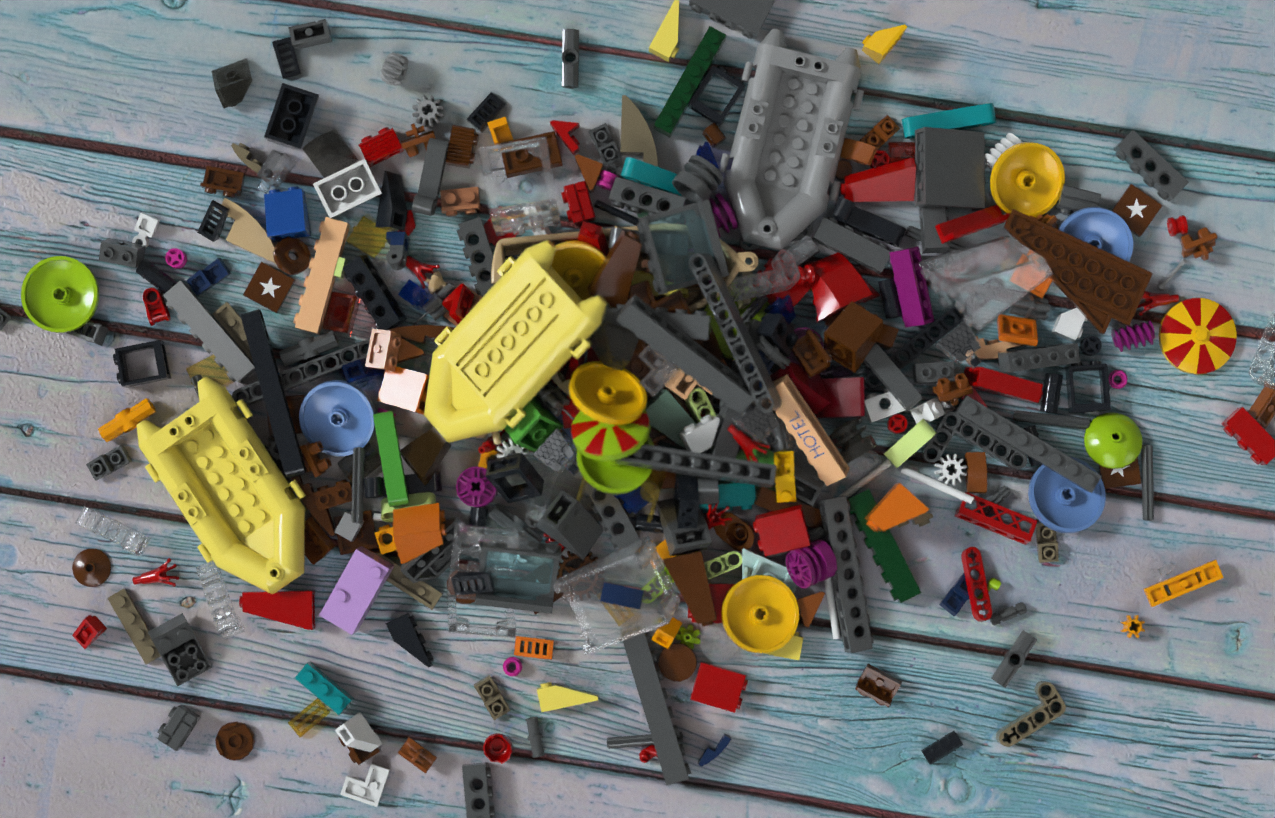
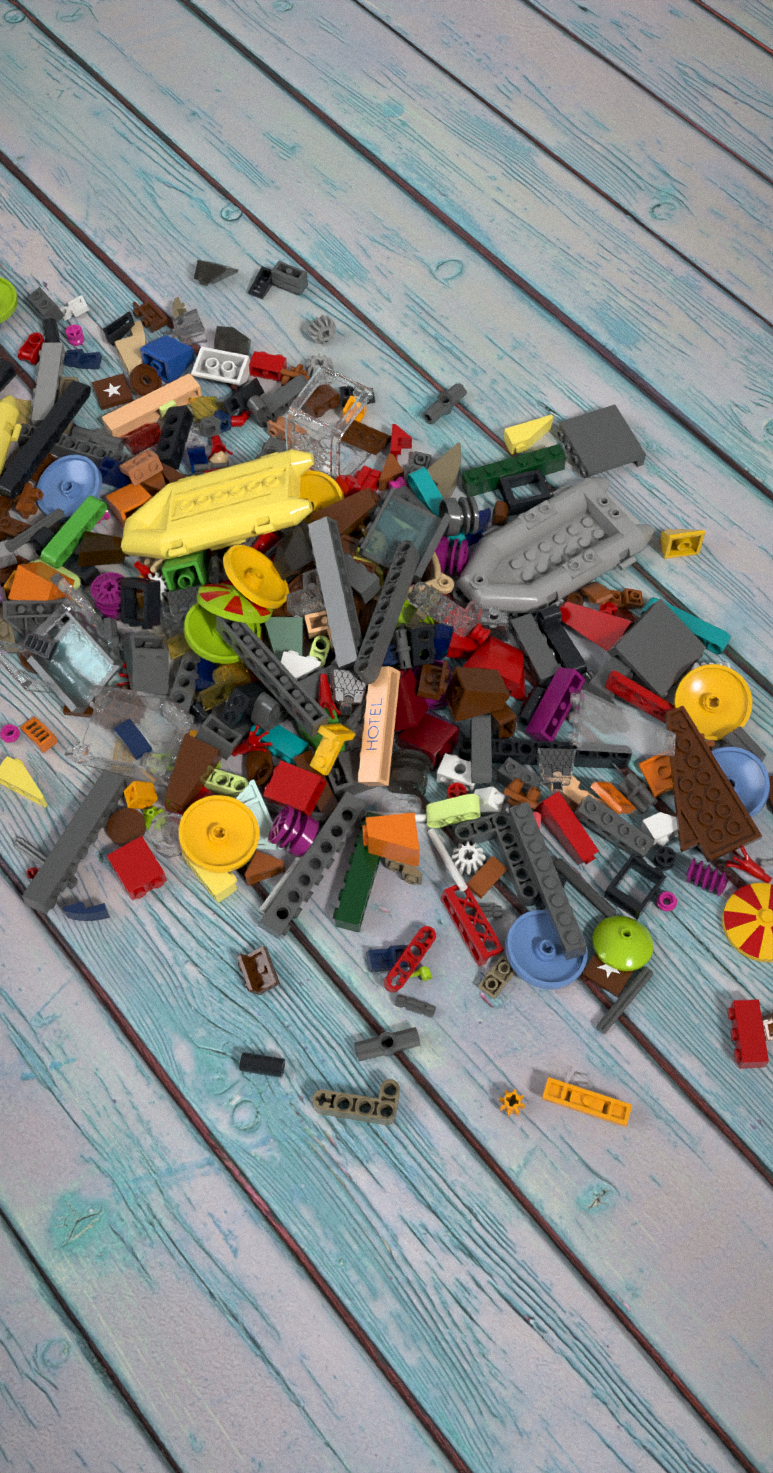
camera: 40 degrees right, 25 degrees down
(291, 116) = (227, 306): black slope -> none
(1051, 393) = (601, 867): black axle -> none

